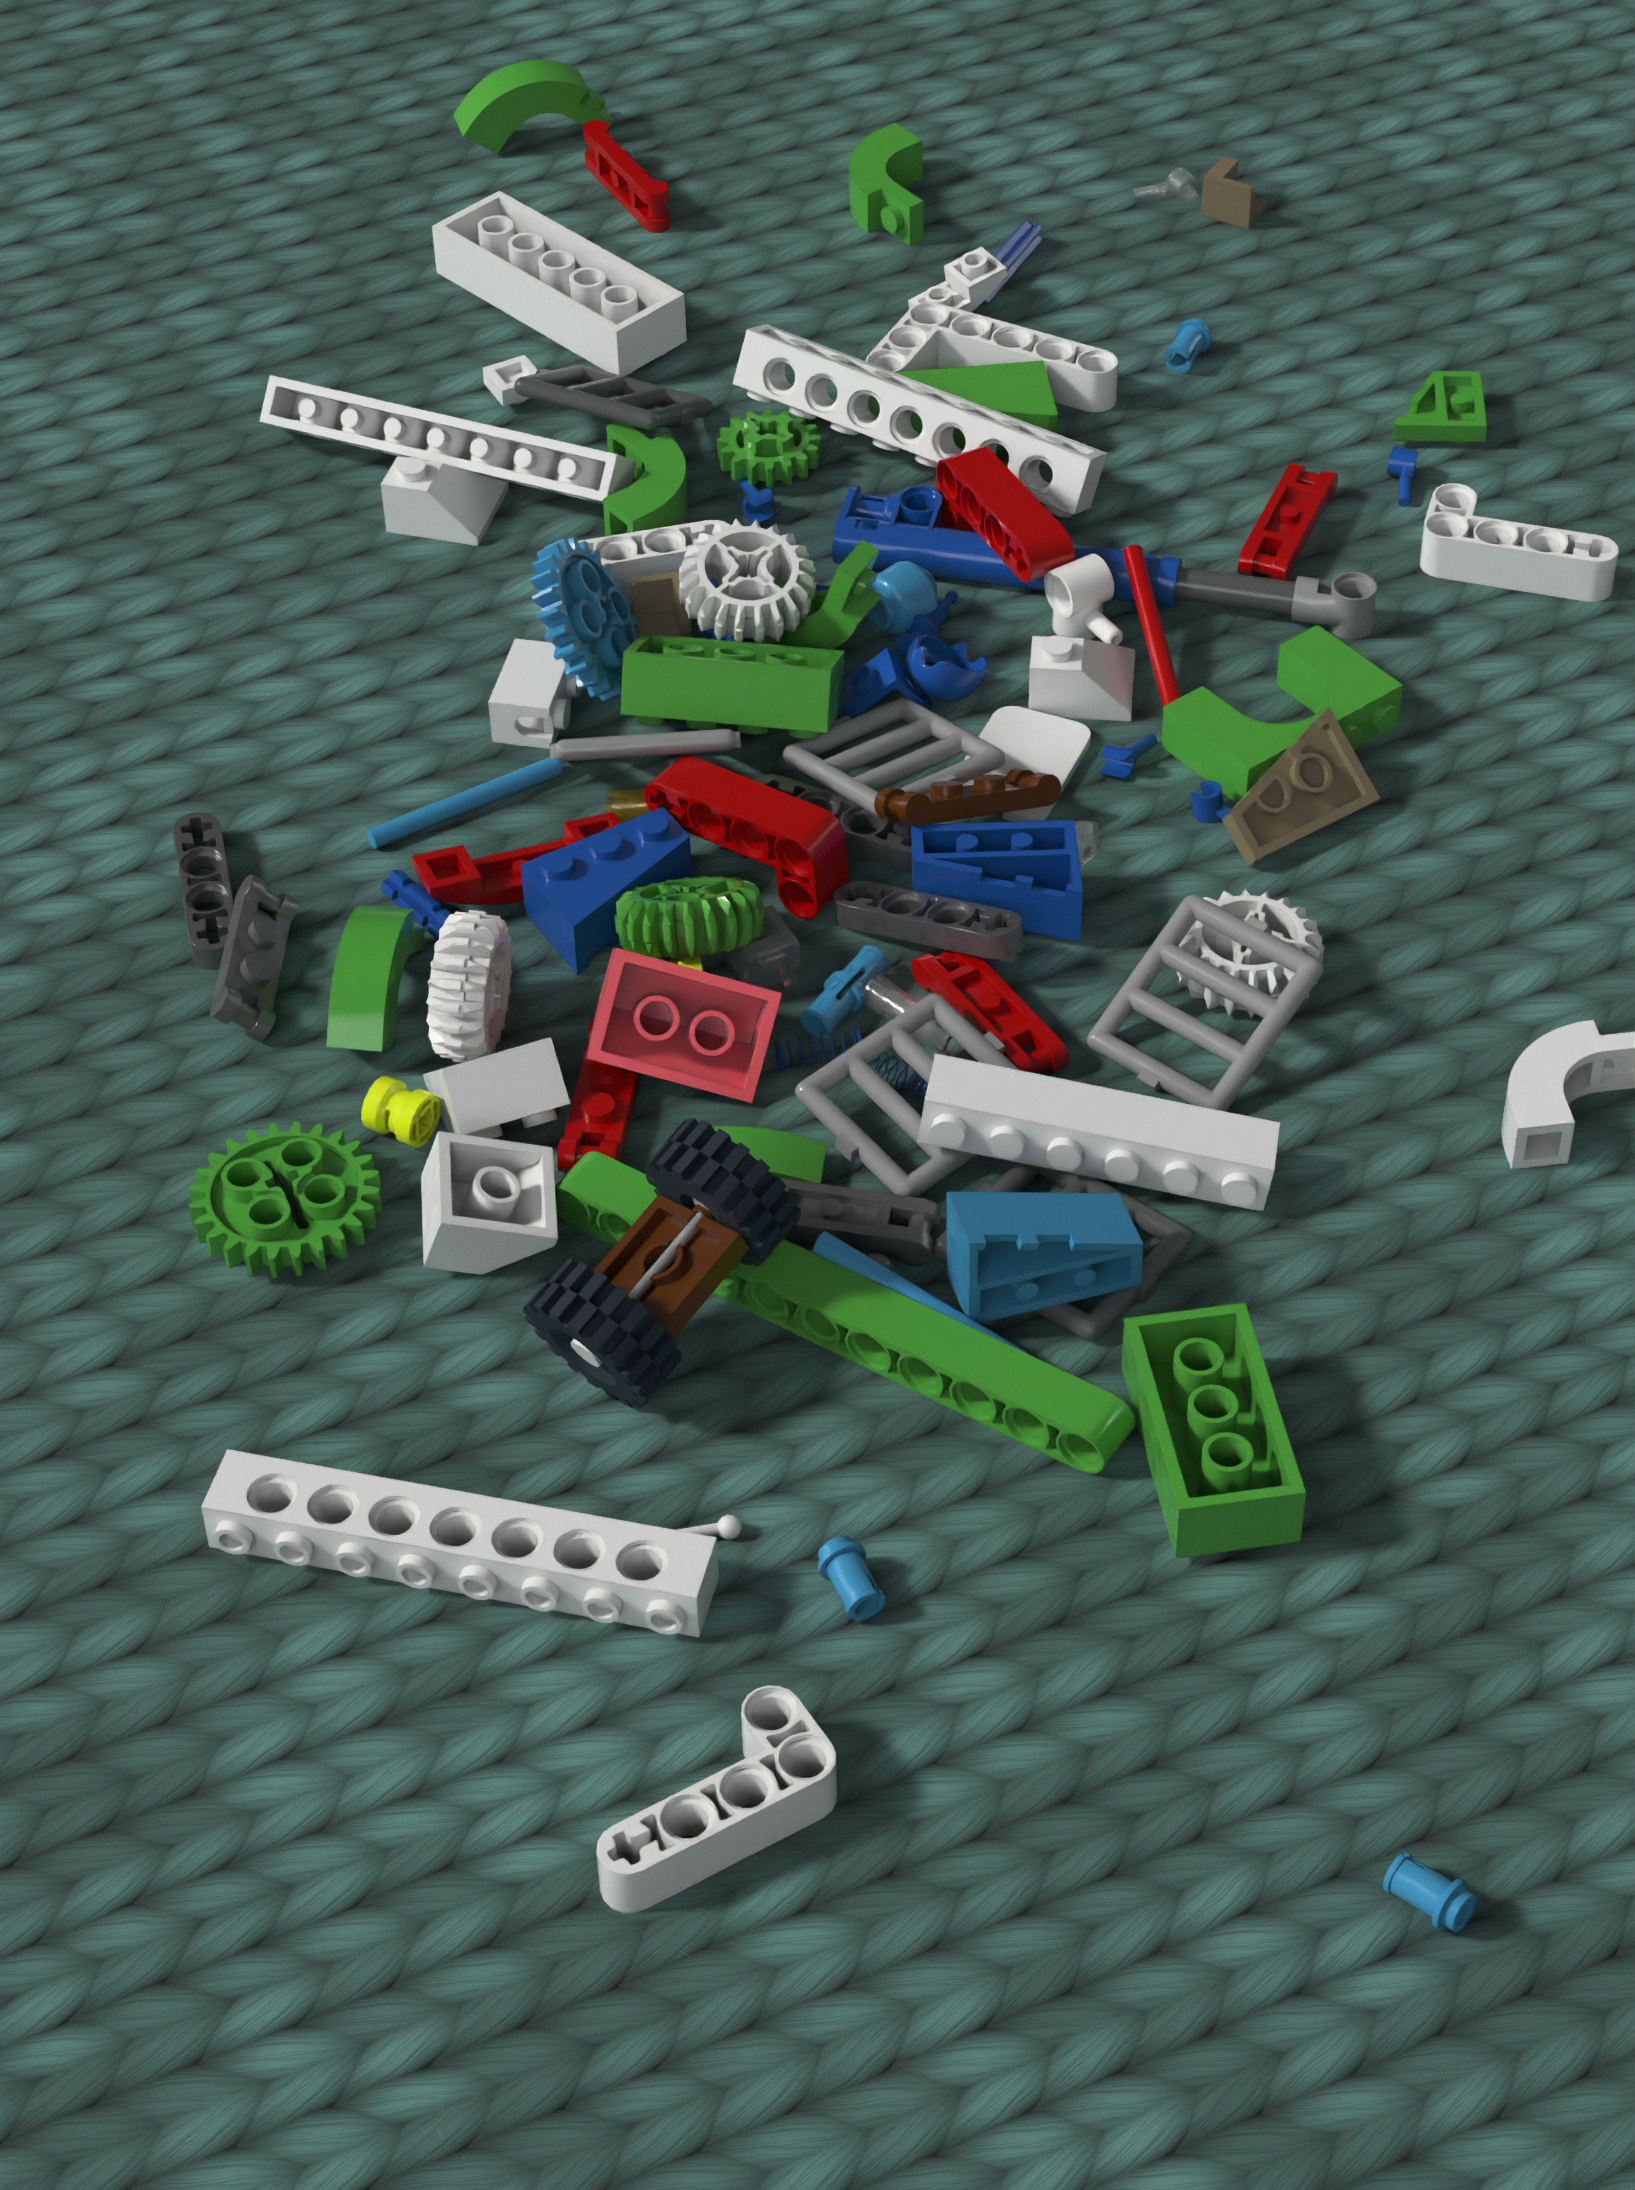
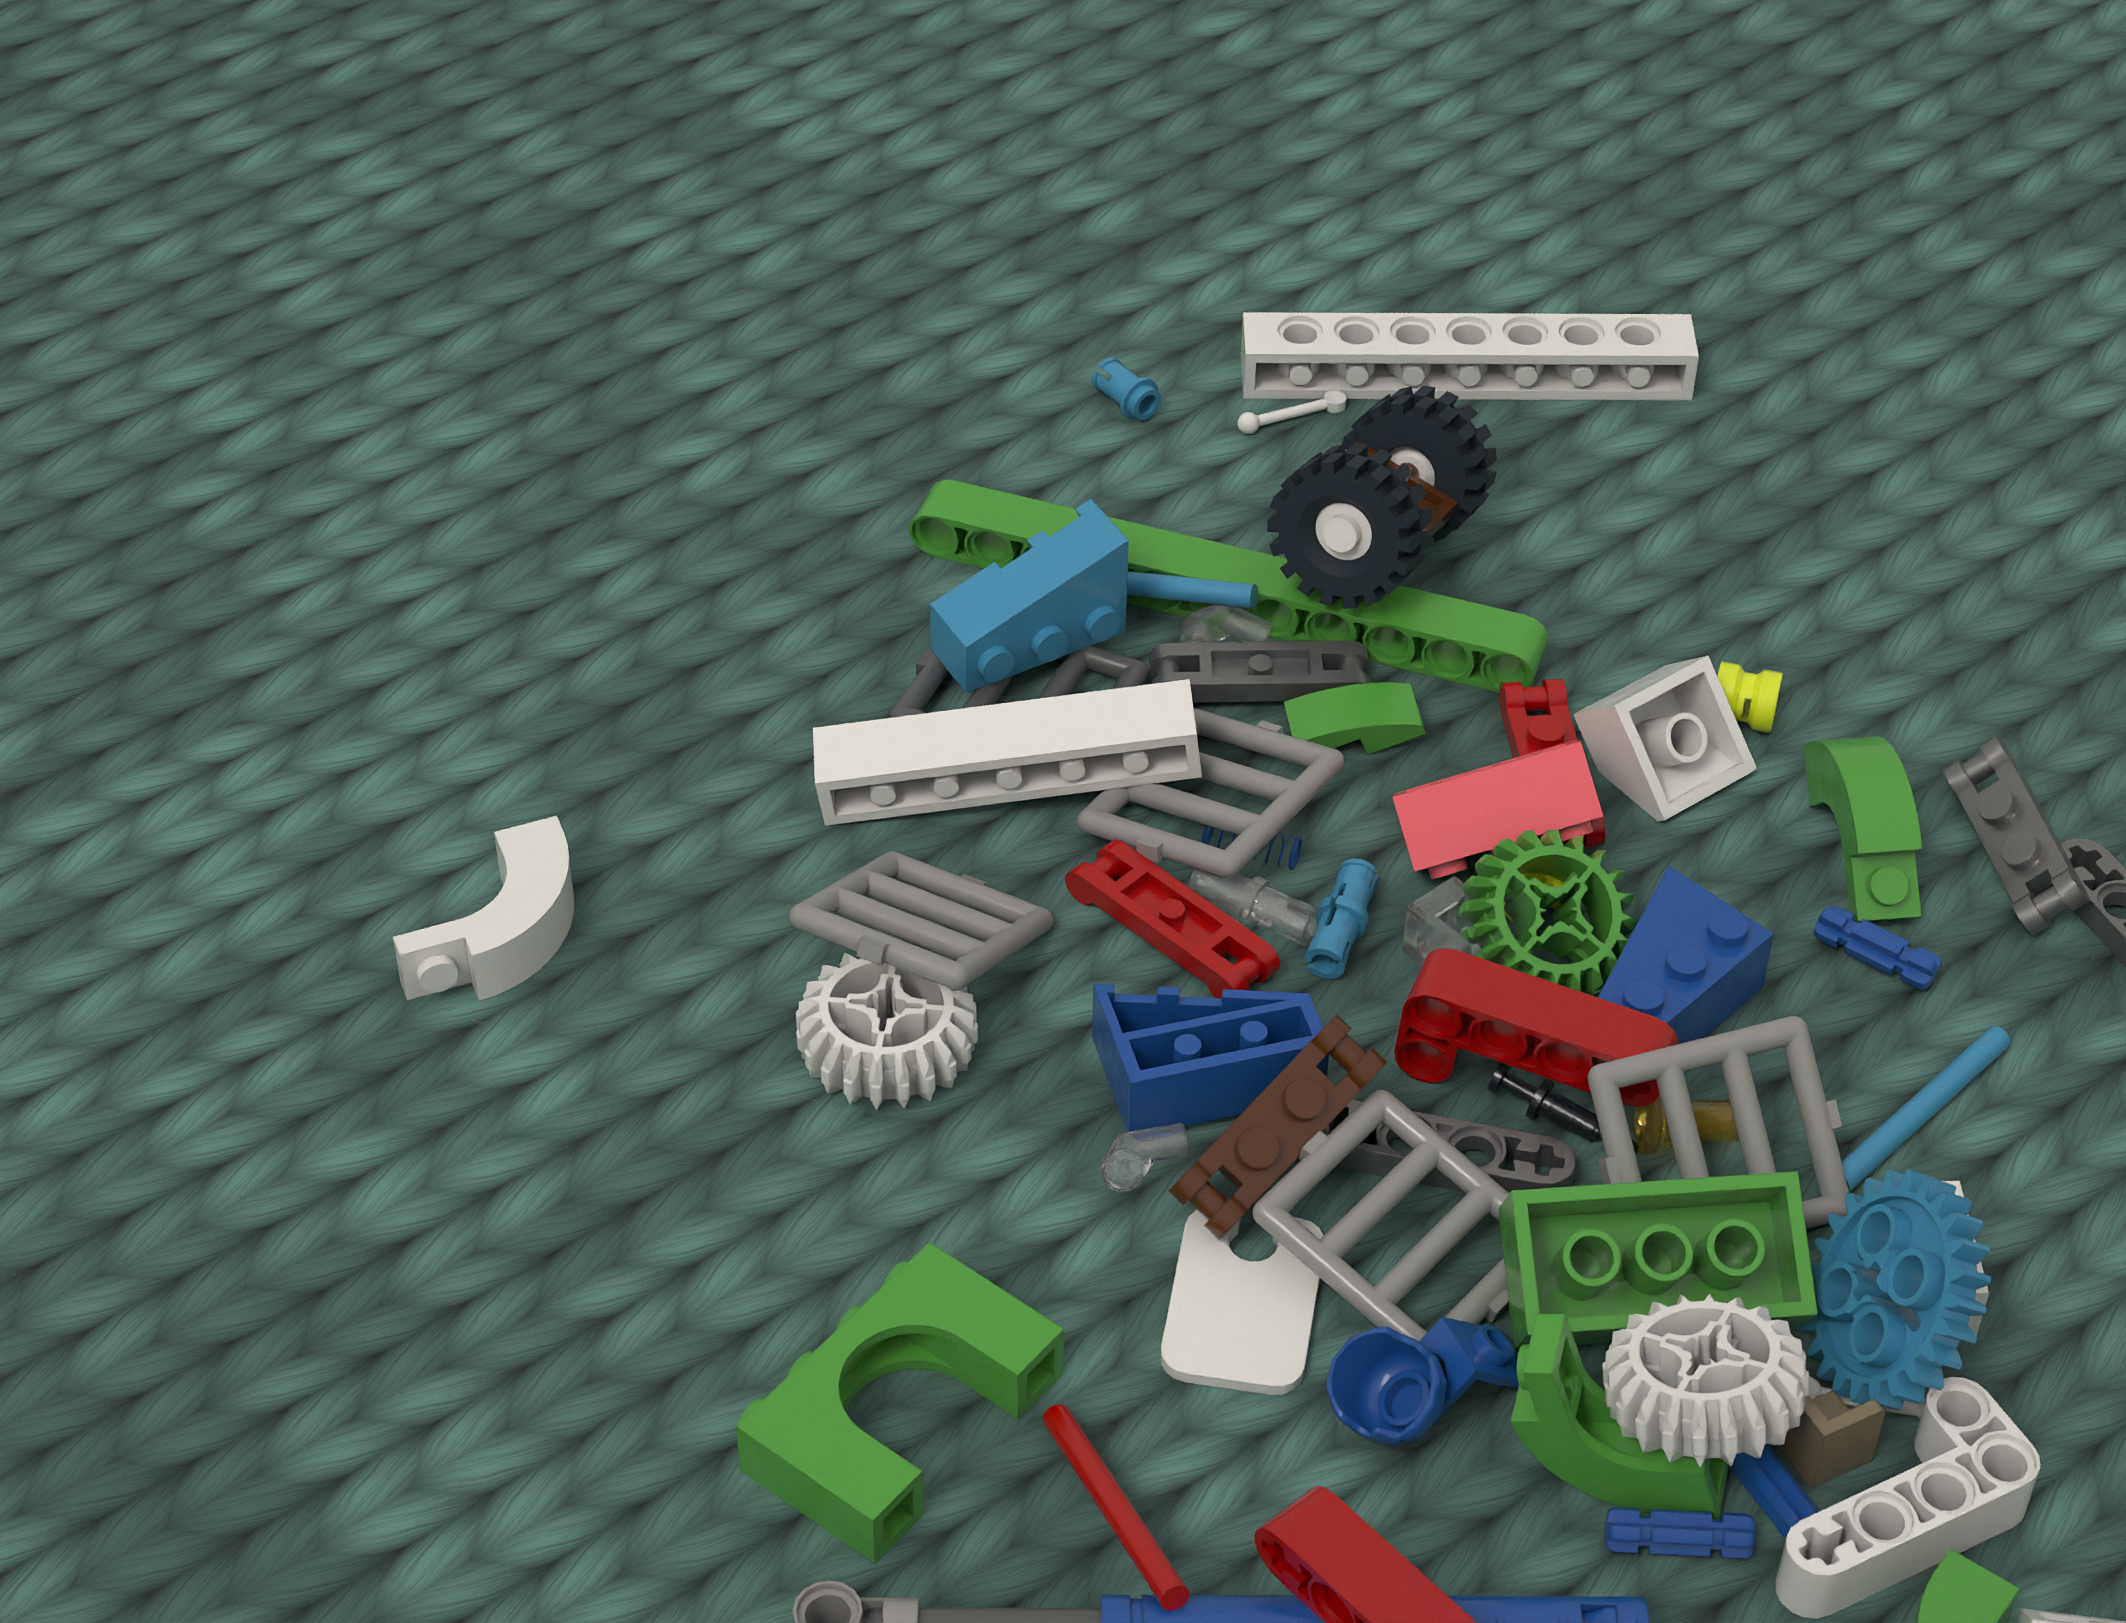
camera: 165 degrees right, 0 degrees up
(251, 1218) = (1804, 600): bright green gear -> none
(469, 986) = (1743, 784): white gear -> none
(486, 1203) = (1603, 600): white slope -> none
(495, 878) = (1825, 992): red slope -> none
(648, 1860) = (1138, 240): white beam -> none
(779, 1054) = (1311, 866): blue piece -> none
(905, 593) = (1500, 1512): dark azure head -> none
(925, 624) = (1452, 1494): blue piece -> none
(929, 919) = (1275, 976): flat silver beam -> none
(1077, 599) = (1224, 1538): white piece -> none
(1081, 678) = (1204, 1439): white slope -> none
(1121, 760) = (1110, 1305): blue hand -> none
(1209, 805) = (977, 1252): blue hand -> none
(1212, 1430) = (837, 511): bright green brick -> none
(1301, 793) = (856, 1256): dark tan wing -> none
(1430, 1892) = (600, 255): dark azure pin -> none

